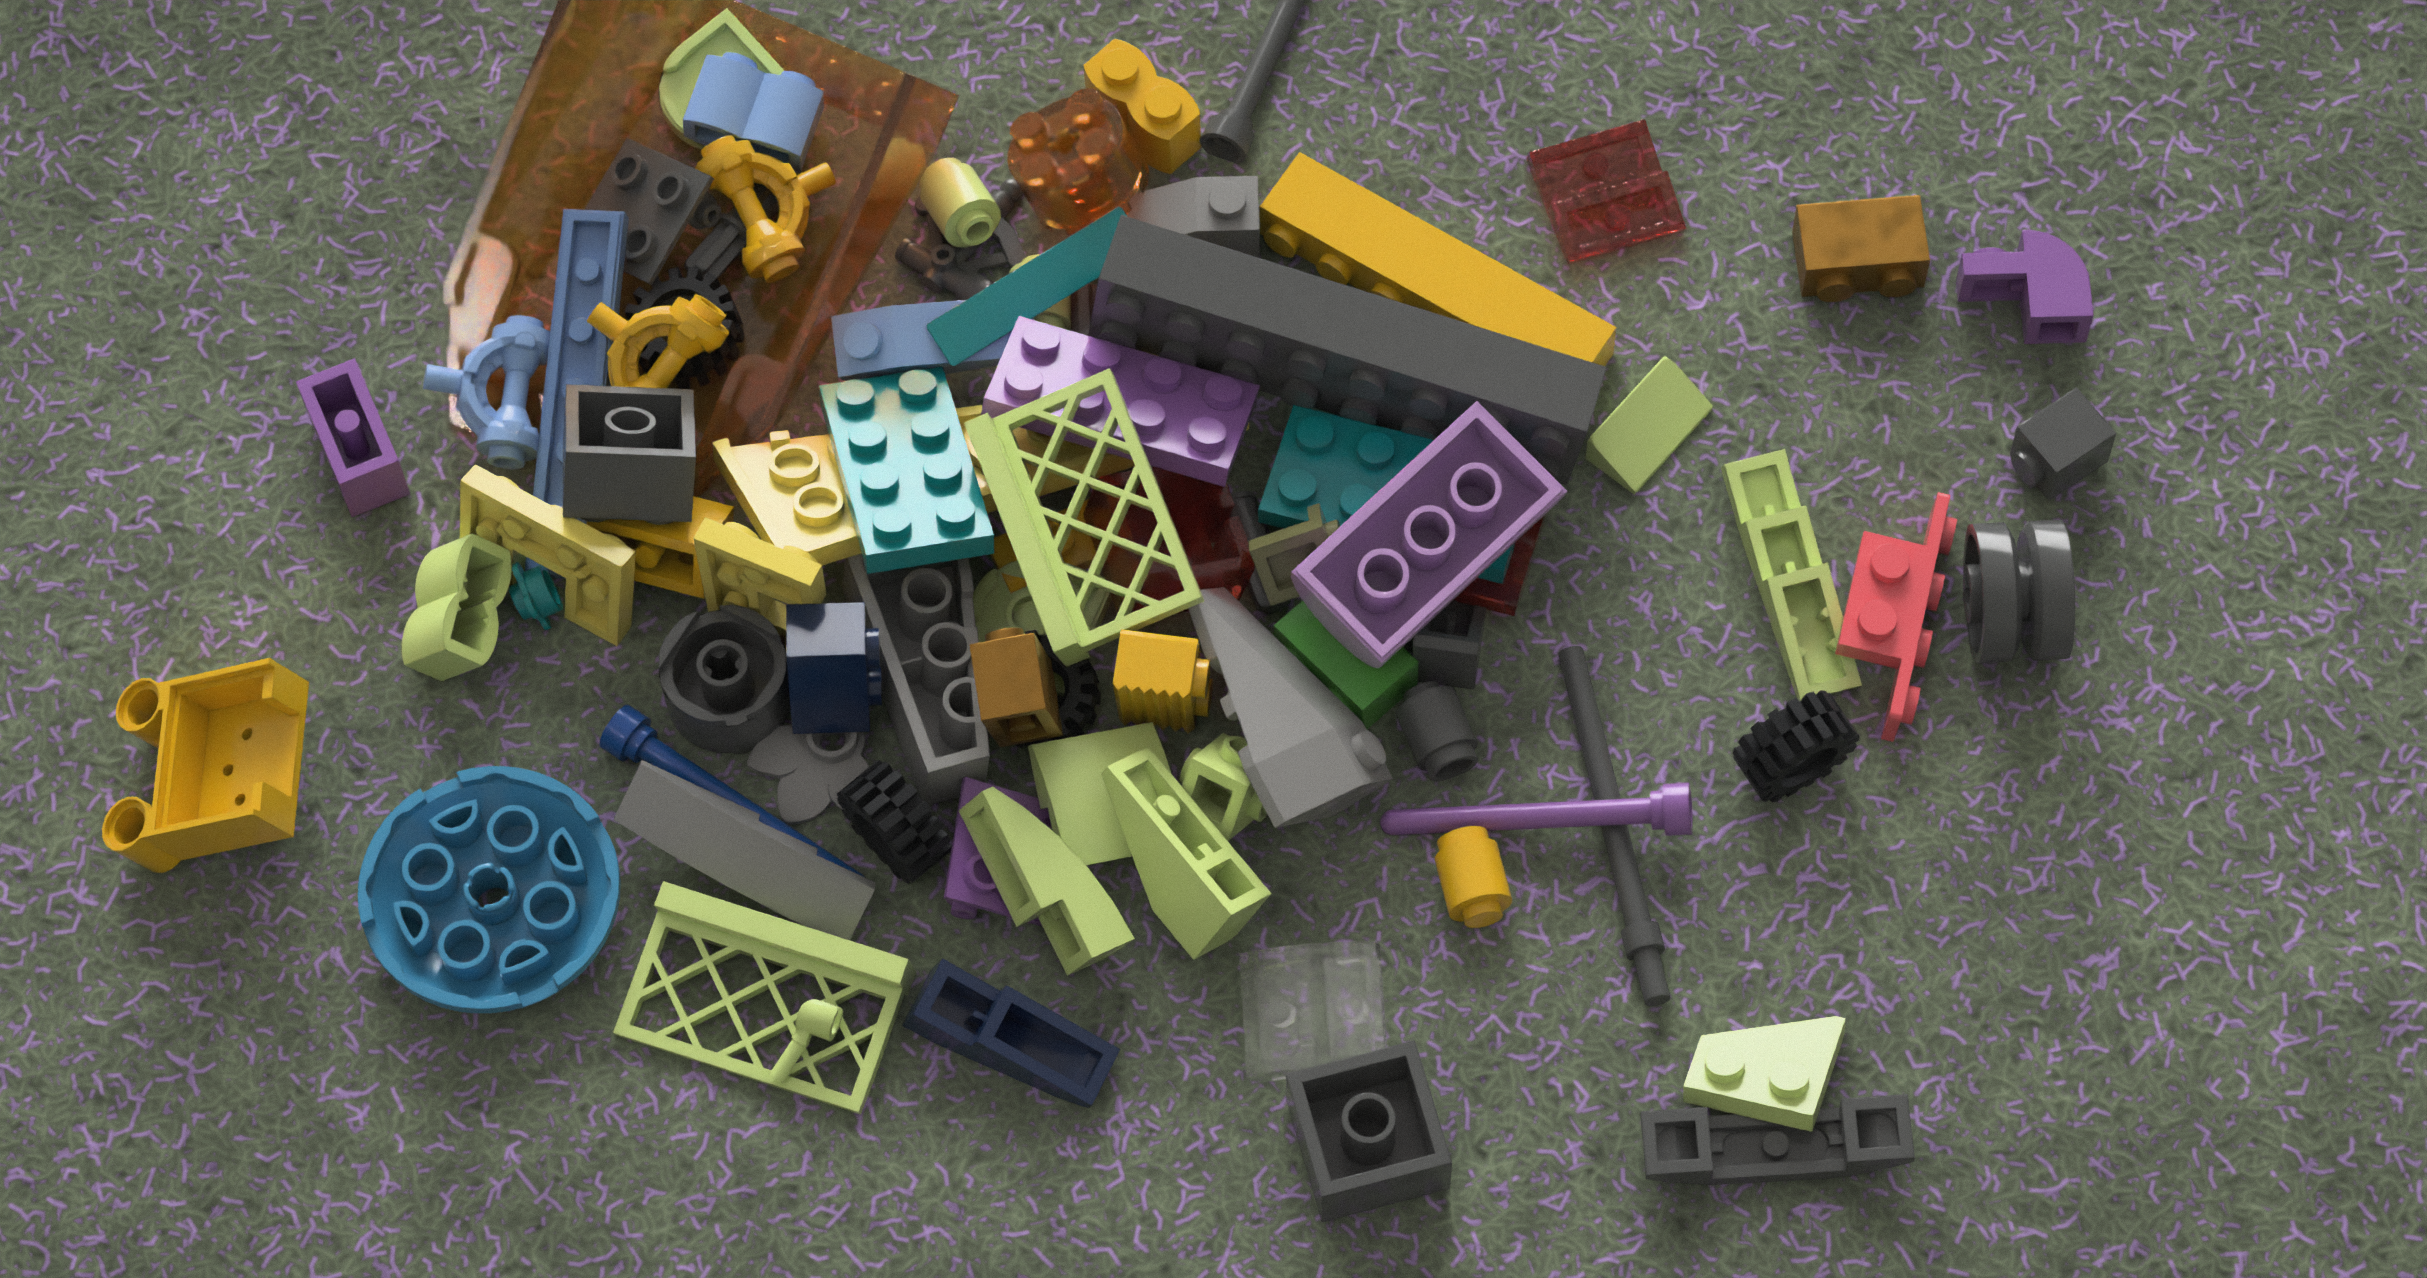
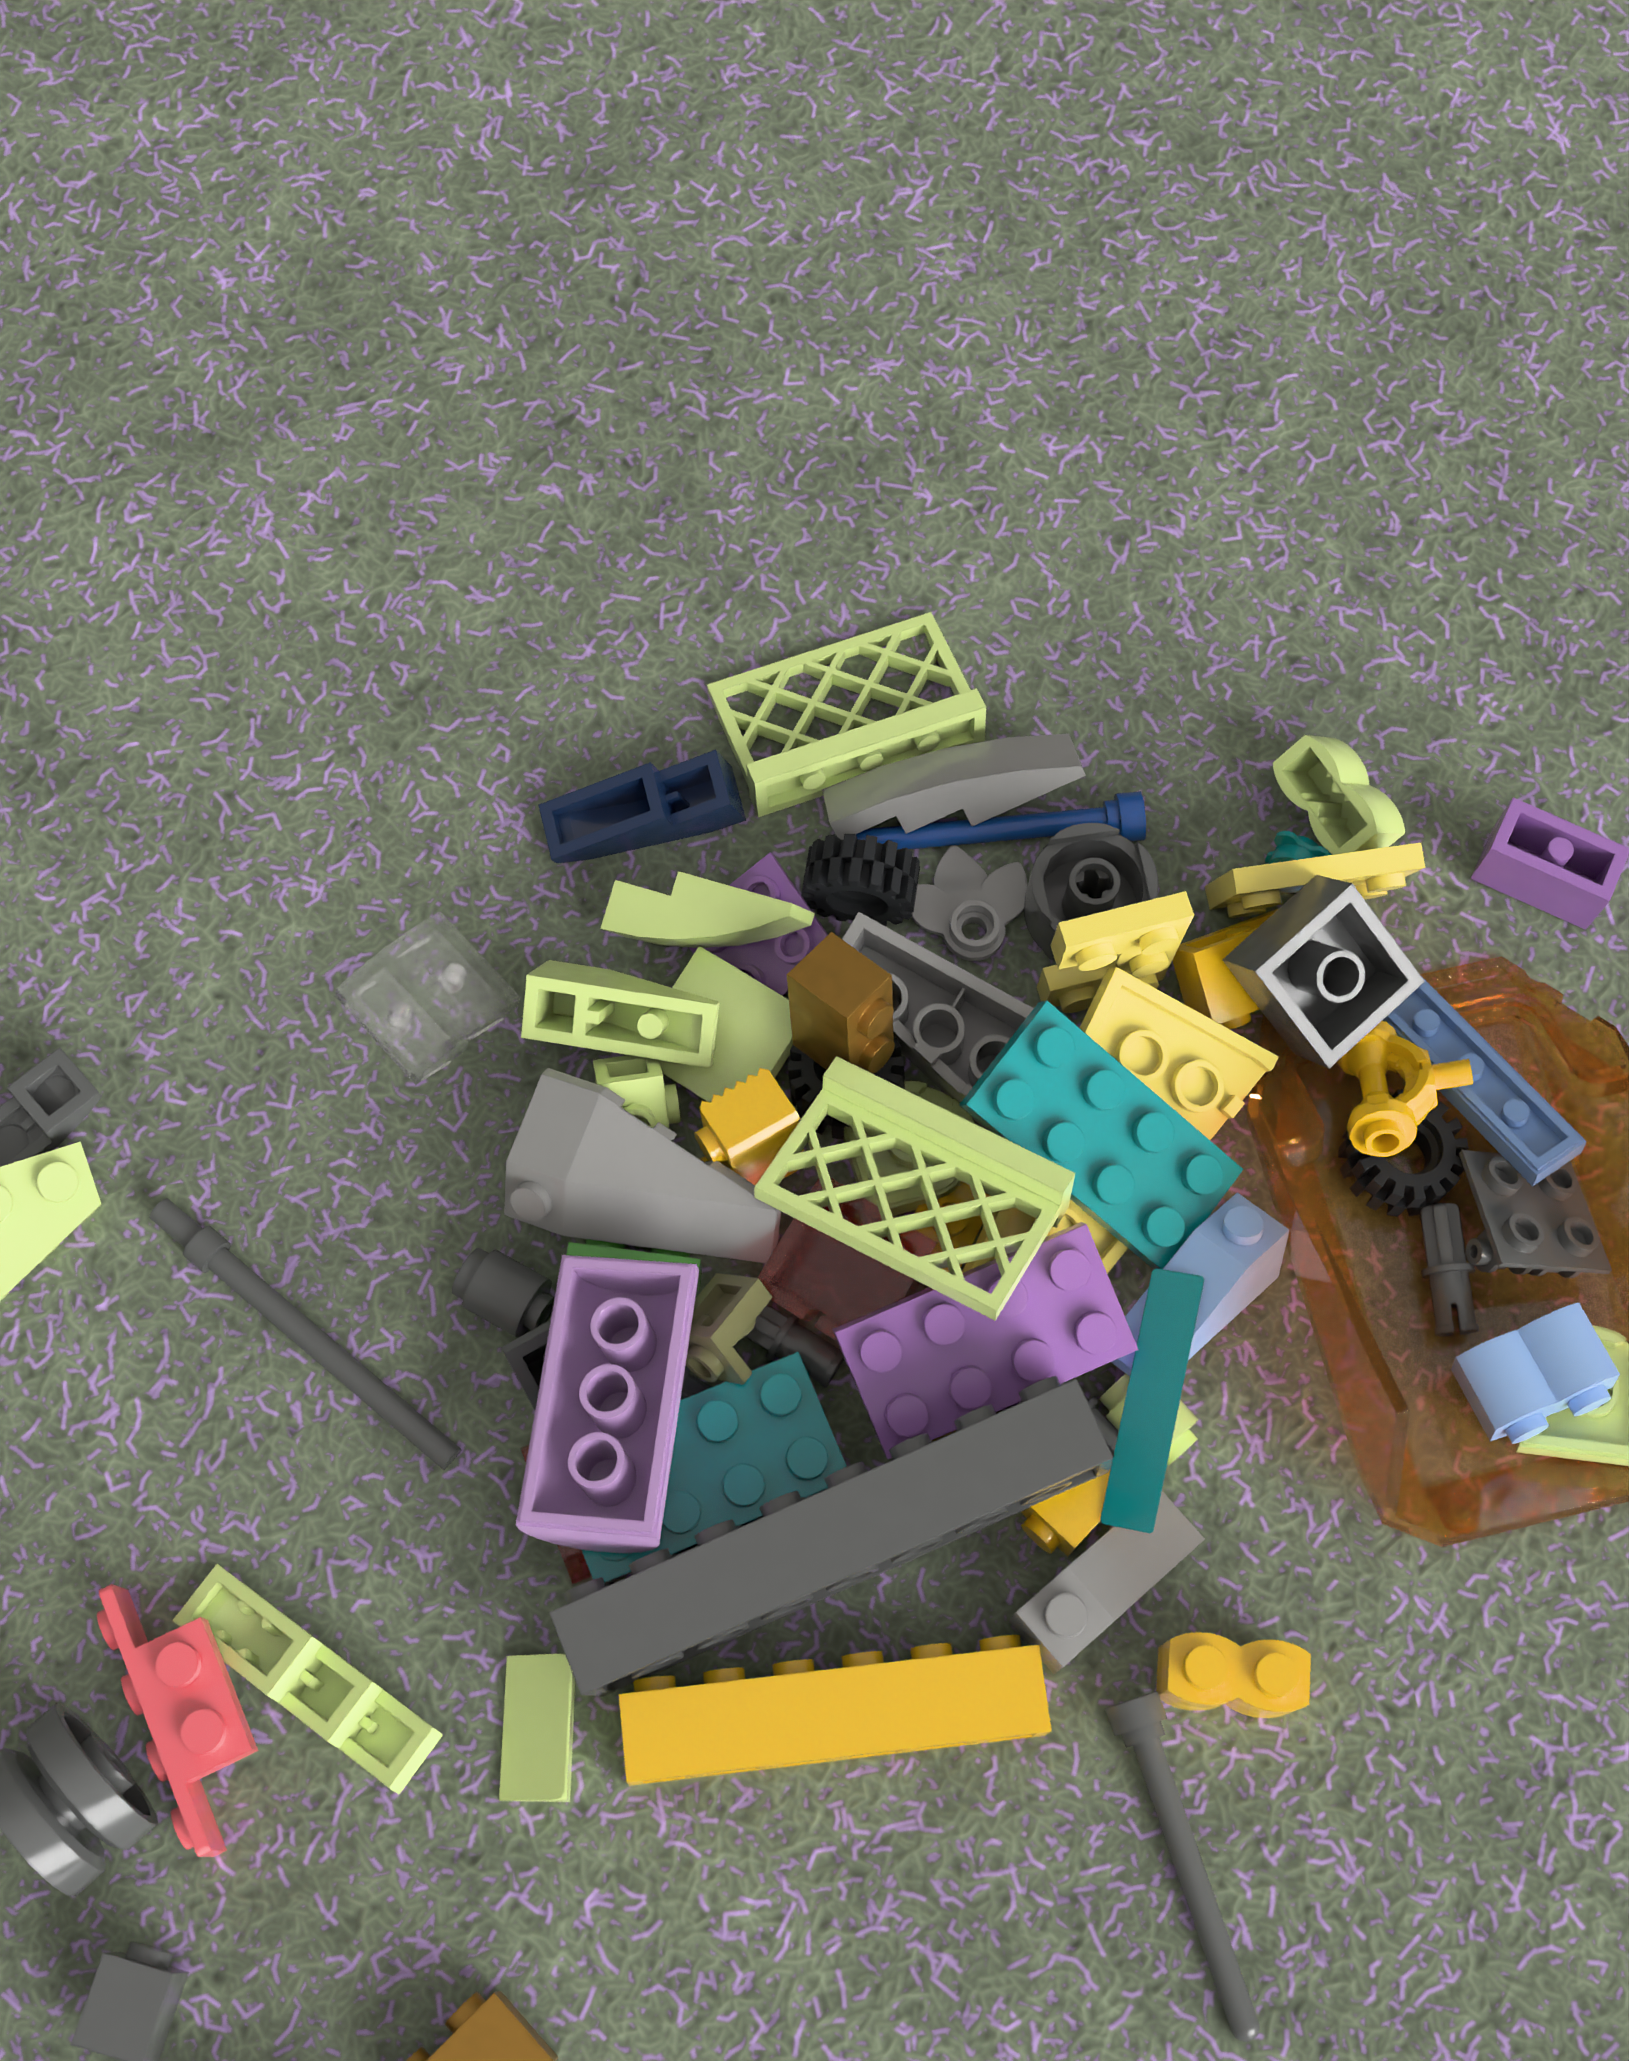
camera: 135 degrees right, 5 degrees up
(222, 766) = (1378, 551): yellow piece -> none
(479, 835) = (1114, 573): dark azure brick -> none
(506, 433) = (1445, 960): light blue piece -> none
(770, 246) = (1493, 1299): yellow piece -> none
(814, 1019) = (785, 705): yellowish green hand -> none
(832, 667) = (1008, 930): dark blue brick -> none
(950, 265) = (1262, 1396): dark grey piece -> none
(959, 202) = (1295, 1441): yellowish green brick -> none
(1075, 161) = (1230, 1556): clear orange brick -> none
(1368, 1131) = (303, 919): dark grey brick -> none
(1472, 877) = (380, 1190): yellow brick -> none
(1605, 191) = (730, 1933): clear red slope -> none
(1664, 809) = (256, 1357): medium lavender piece -> none
(1795, 746) = (176, 1495): black tyre -> none

